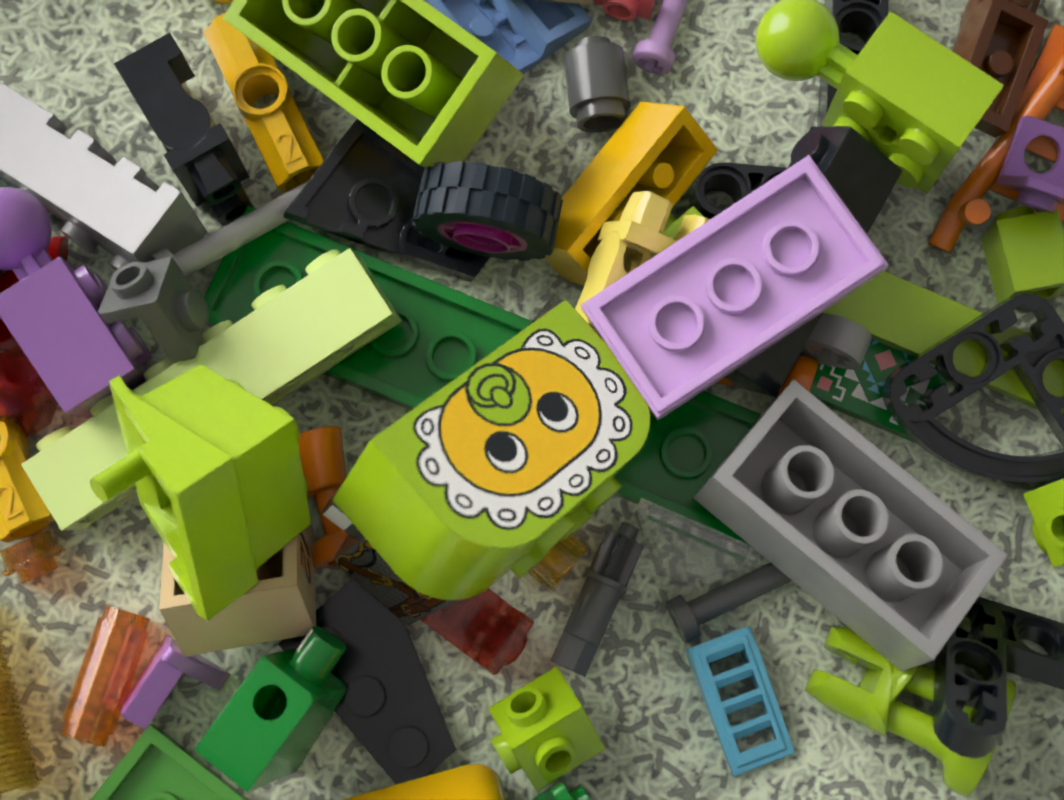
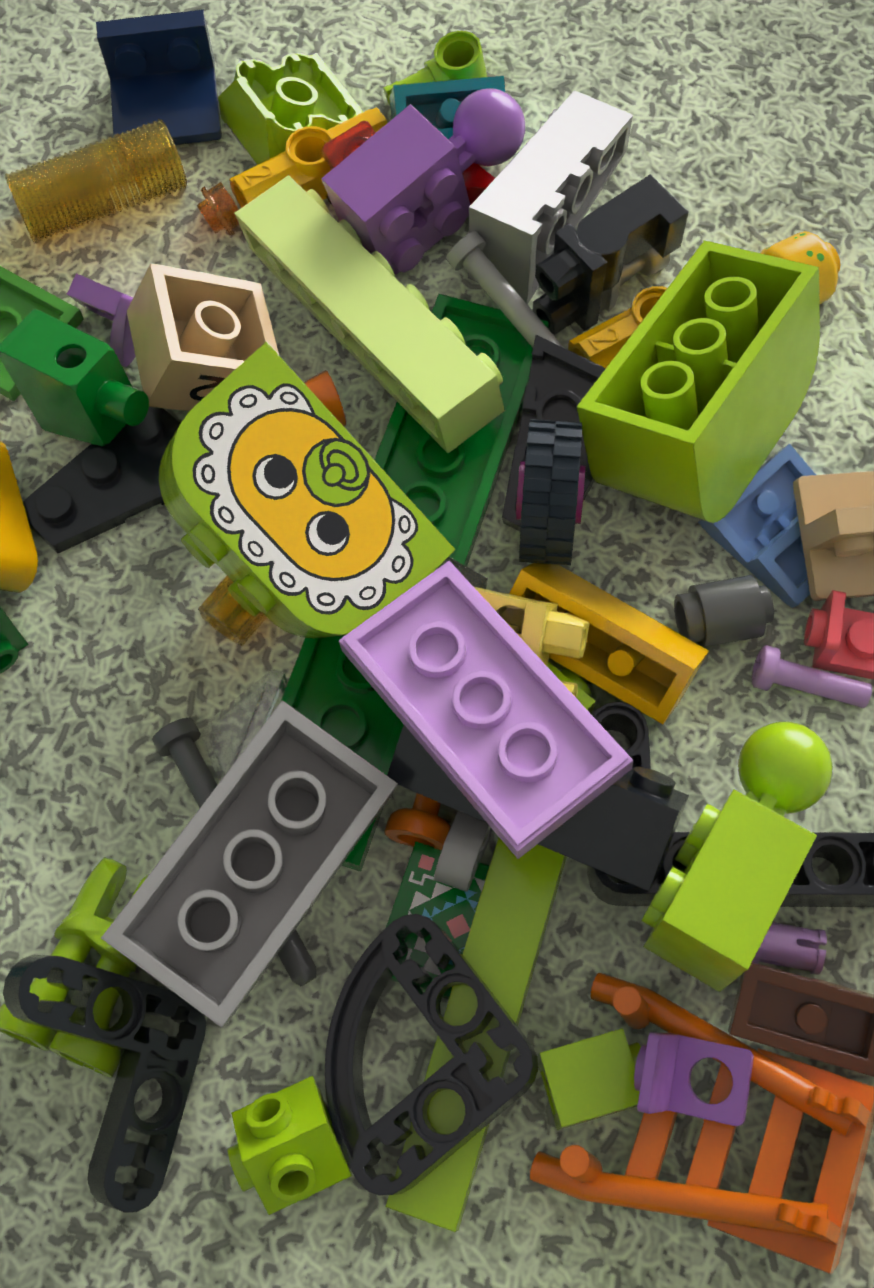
camera: 85 degrees right, 10 degrees down
(105, 676) = (108, 266): clear orange piece -> none
(163, 301) = (425, 237): dark grey bracket -> none
(213, 478) = (253, 270): lime piece -> none
(483, 629) = (160, 557): clear red bracket -> none
(544, 730) = (65, 612): lime brick -> none
(598, 598) = (192, 657): dark grey piece -> none
(723, 646) = (128, 807): medium azure slope -> none

